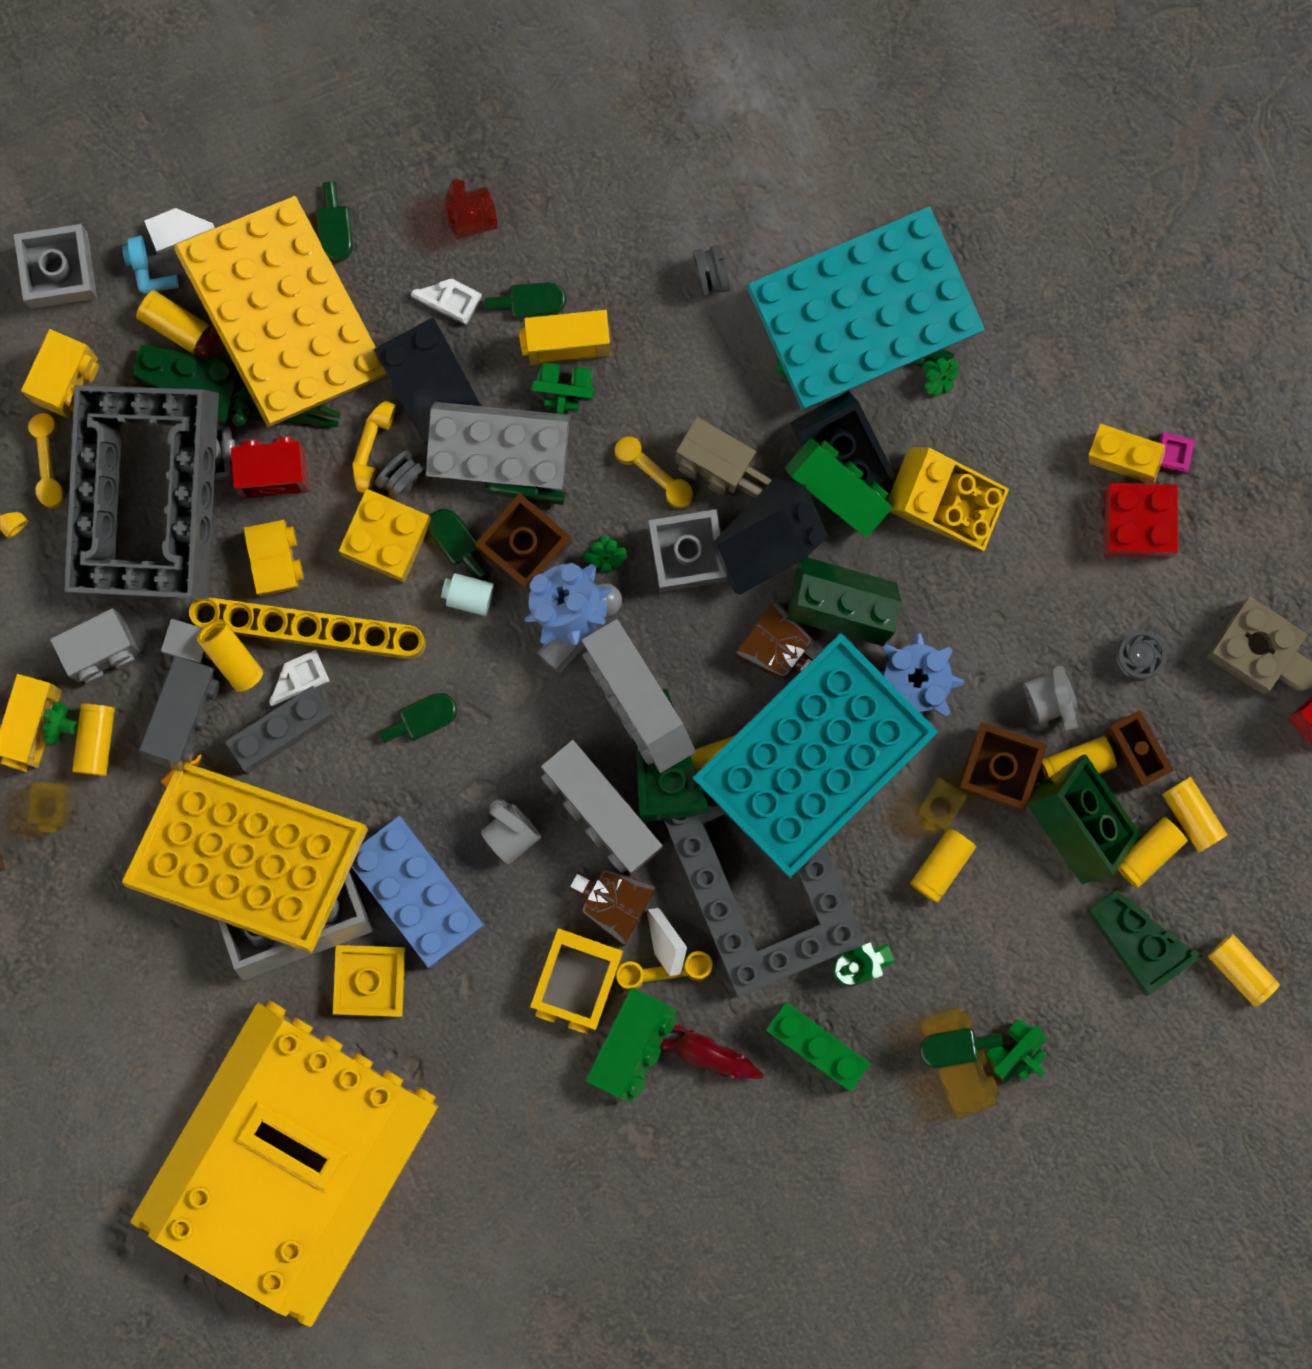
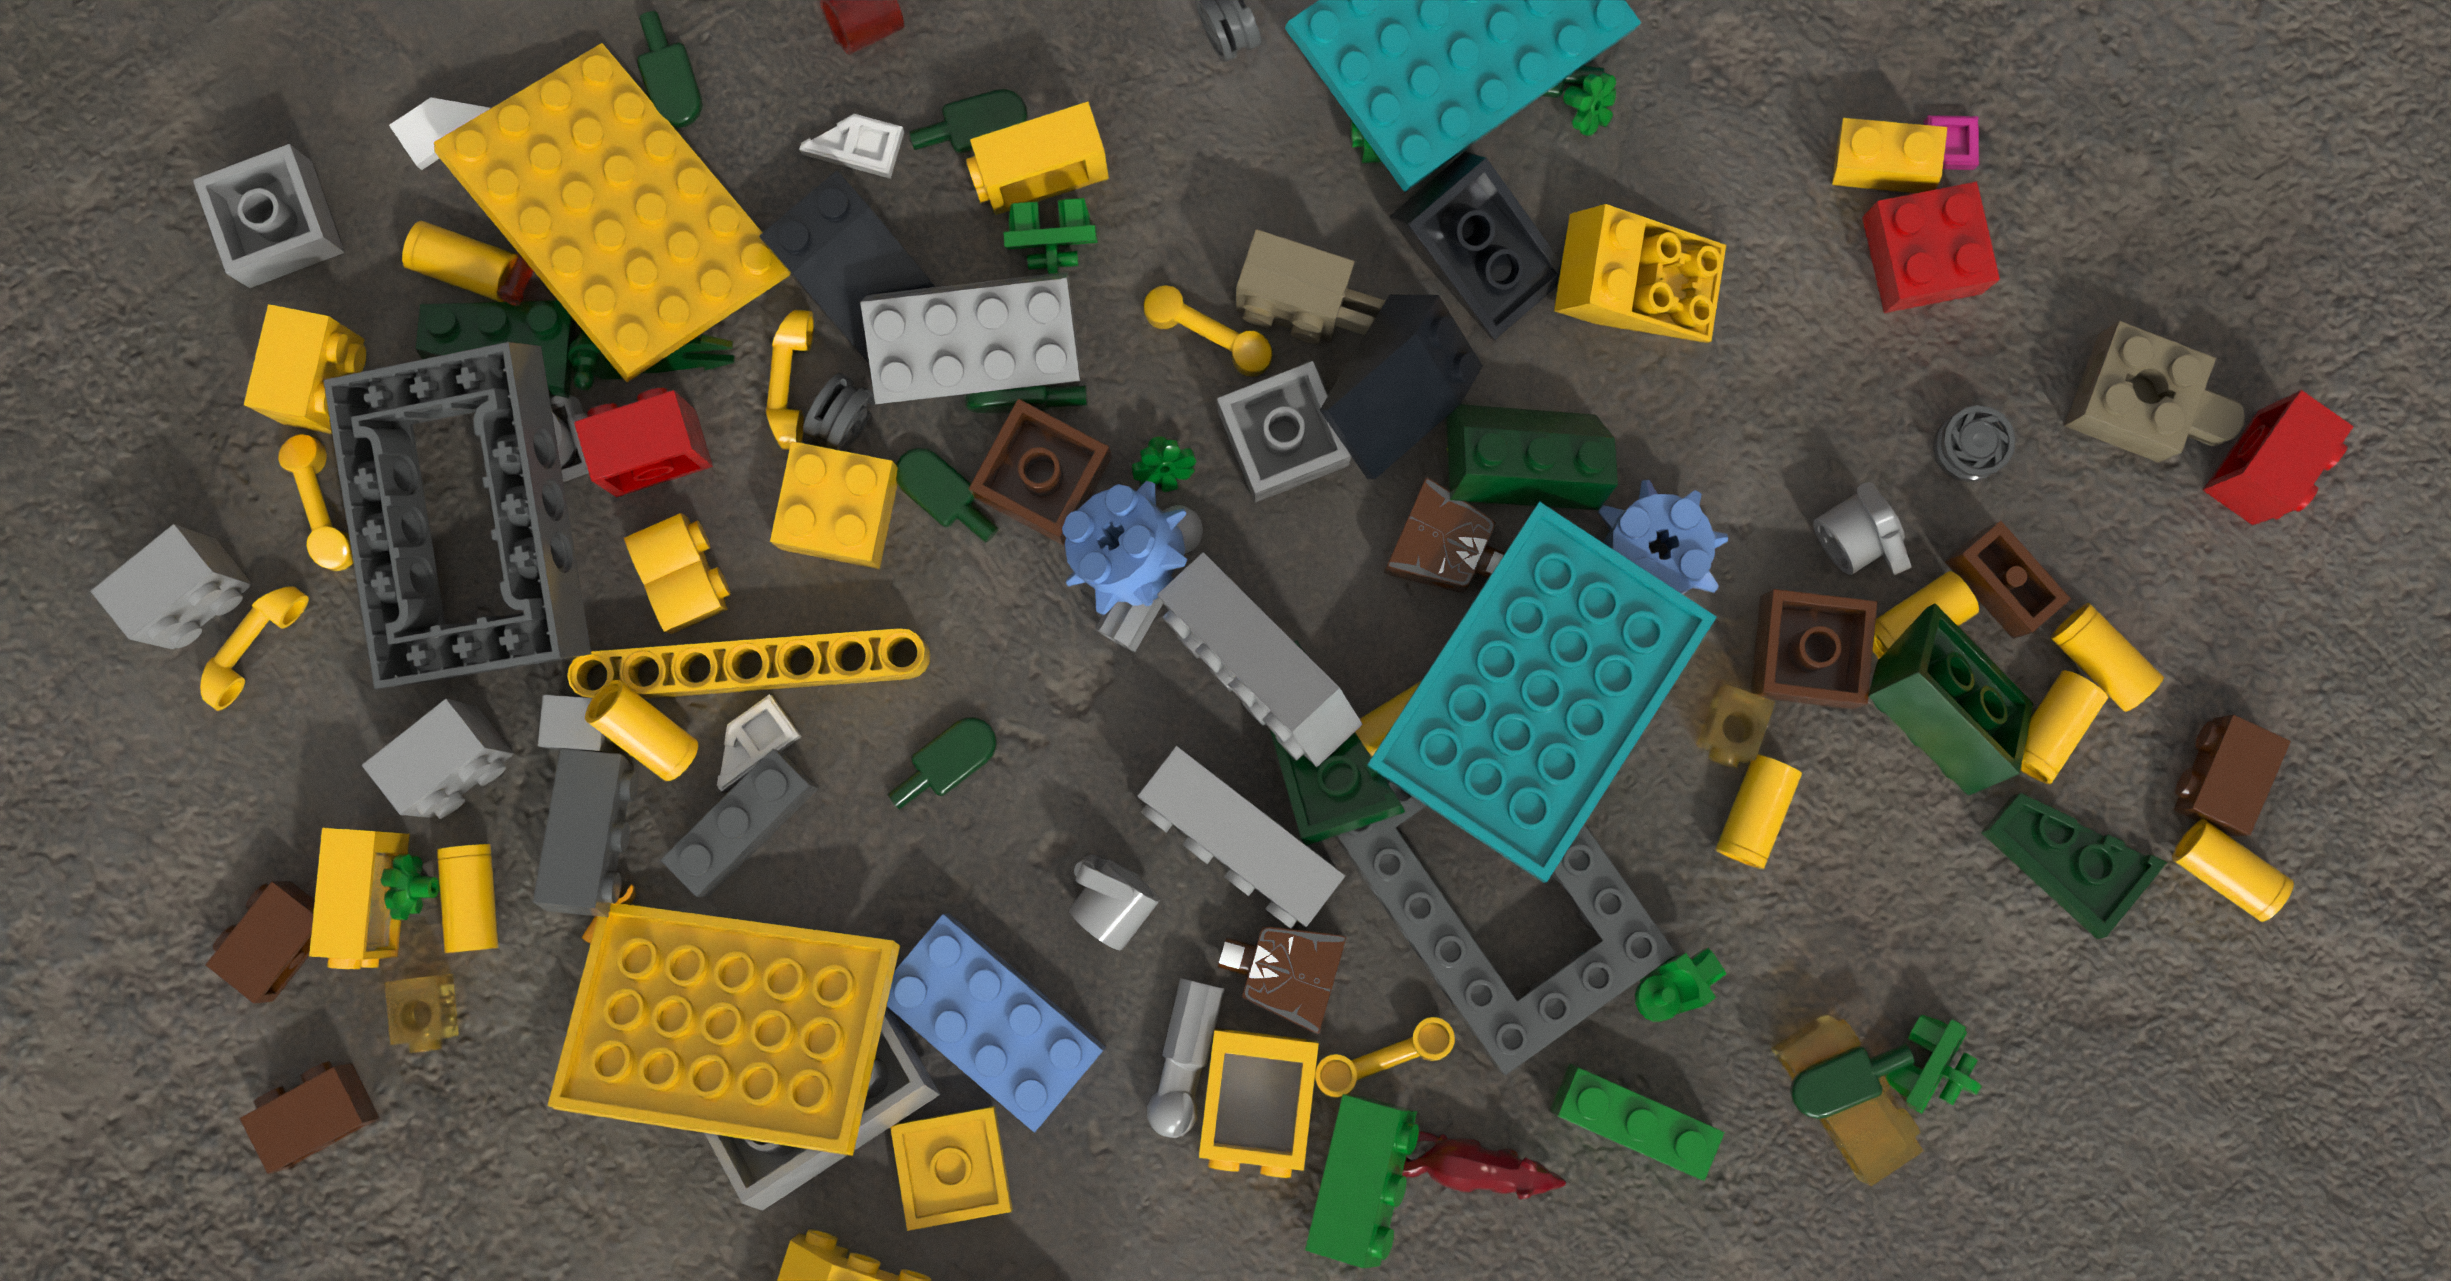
camera: 10 degrees left, 0 degrees up
(136, 255) = (387, 177): medium azure plate -> none
(468, 594) = (975, 564): light aqua brick -> none
(536, 940) = (1186, 1051): none -> light grey piece
(666, 942) = (1378, 1015): white tile -> none
(839, 486) = (1486, 288): green brick -> none
(1256, 908) = (2230, 774): none -> reddish brown brick

